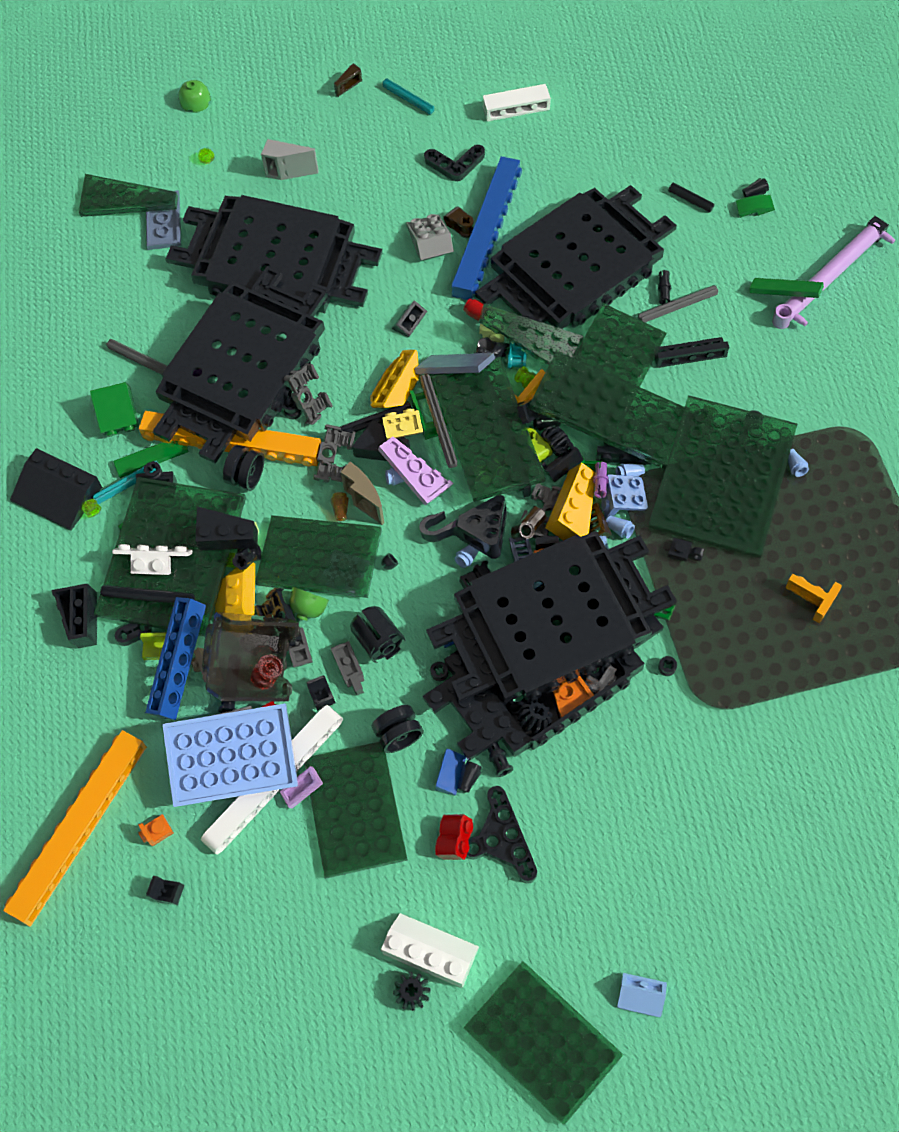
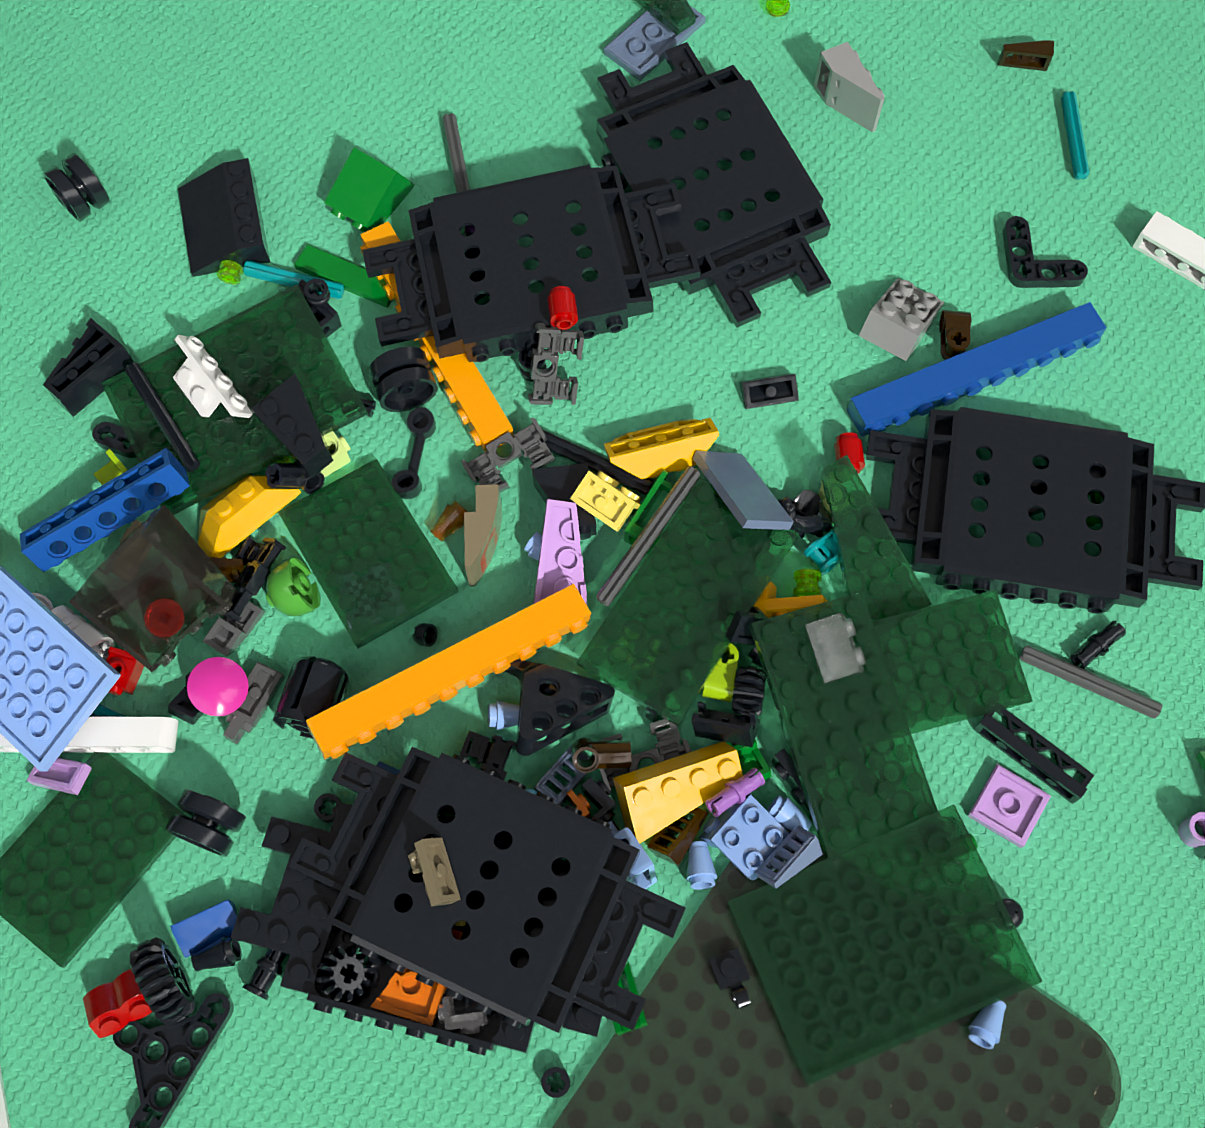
camera: 45 degrees right, 5 degrees up
(274, 482) = (422, 426): none -> black piece
(289, 359) = (562, 308): none -> red brick
(329, 672) = (217, 686): none -> dark pink dish
(426, 557) = (447, 672): none -> light orange brick
(464, 801) = (162, 981): none -> black gear
(521, 621) = (438, 877): none -> dark tan hinge
(574, 378) = (835, 647): none -> clear bracket
(651, 480) = (796, 850): none -> sand blue slope
(705, 380) = (1009, 806): none -> lavender tile

